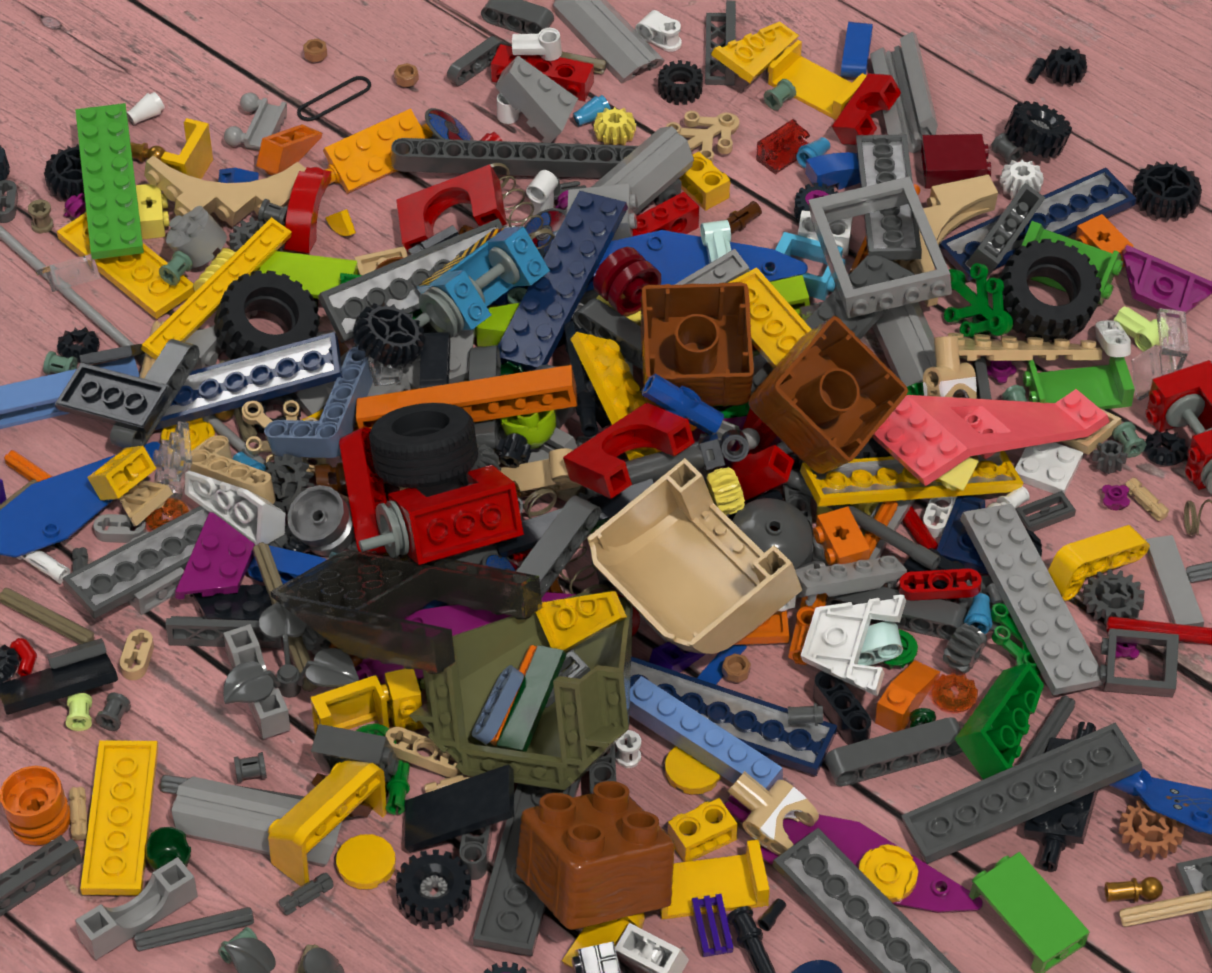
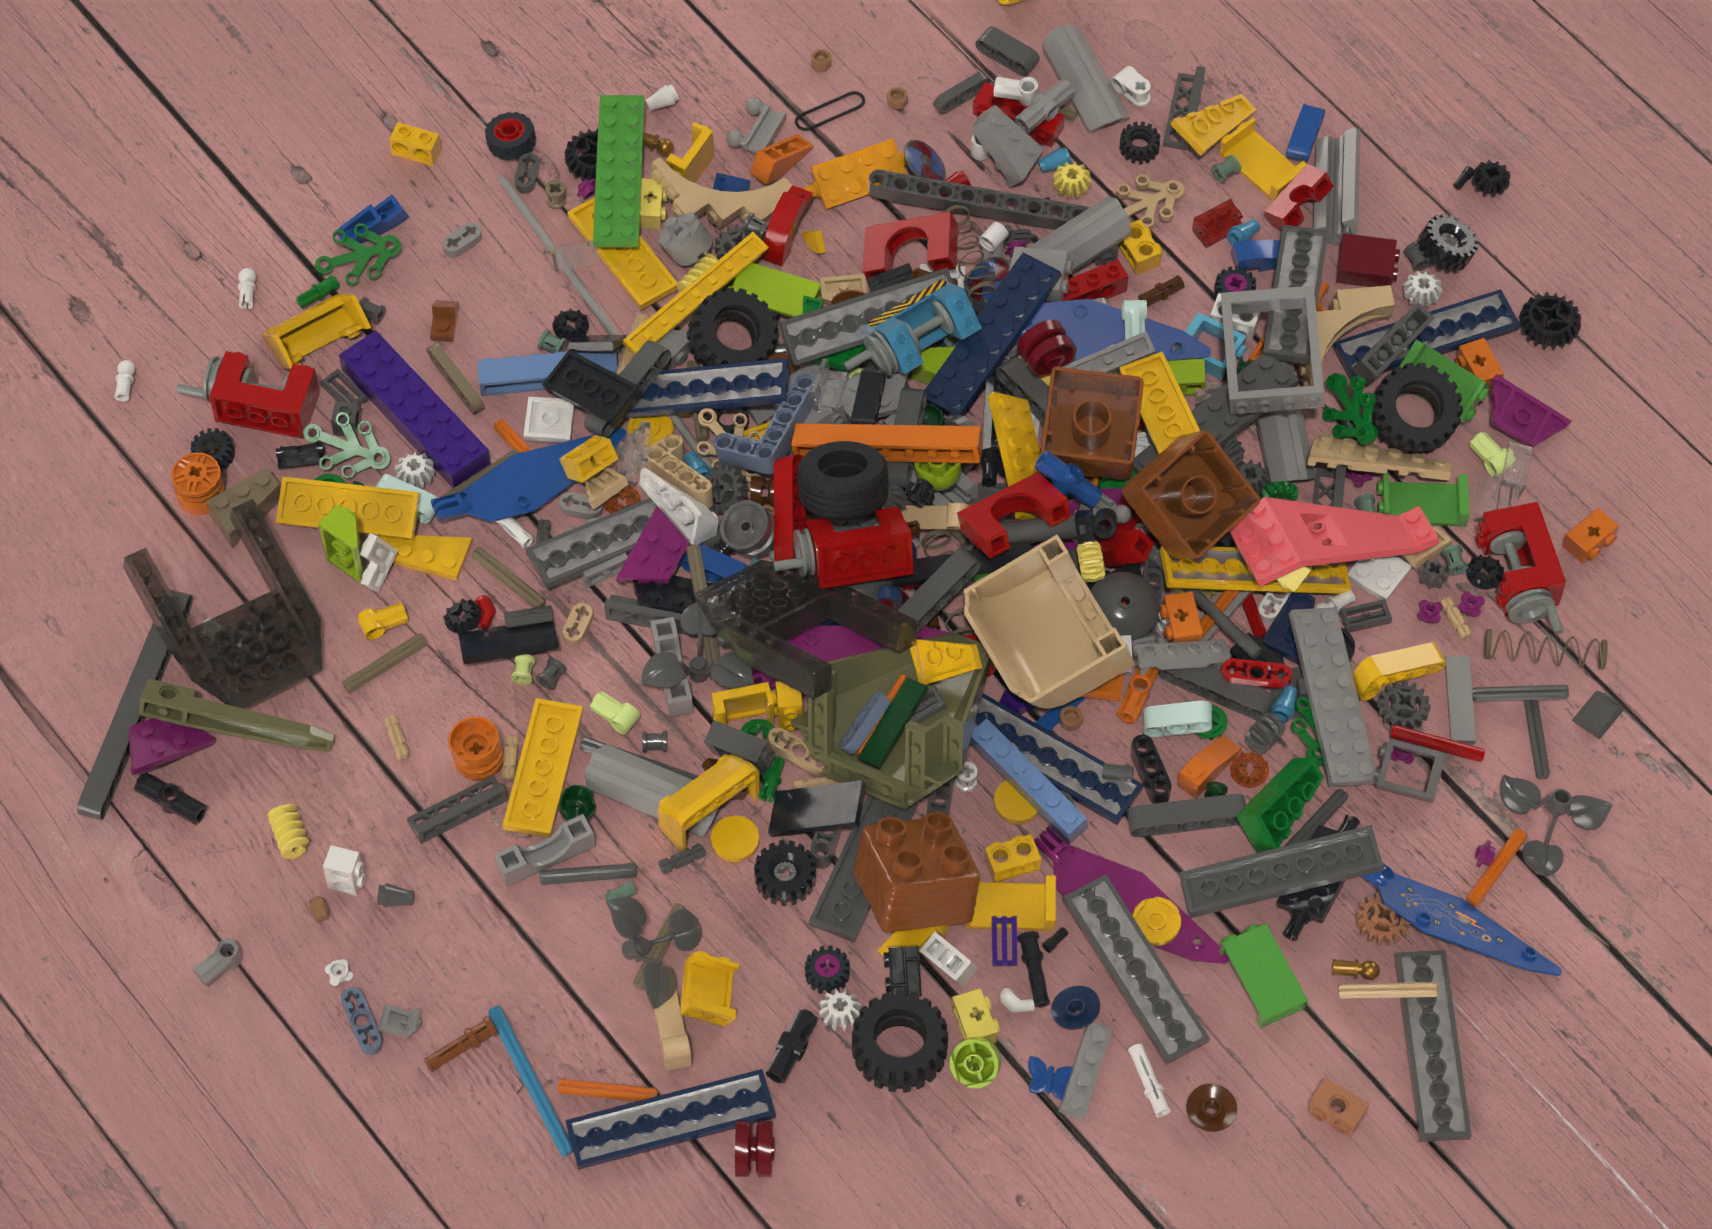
camera: 10 degrees right, 10 degrees up
(68, 443) = (548, 420): none -> white plate
(175, 268) = (663, 266): sand green bush -> none
(202, 745) = (620, 716): none -> yellowish green piece
(388, 335) = (819, 363): black gear -> none
(572, 54) = (1045, 106): none -> light grey piece
(770, 809) = (1069, 851): tan connector -> none
(838, 639) = (1159, 708): white wing -> none
(949, 376) = (1309, 480): tan connector -> none
(1113, 338) = (1463, 462): white beam -> none
(1159, 482) = (1471, 610): none -> magenta plate

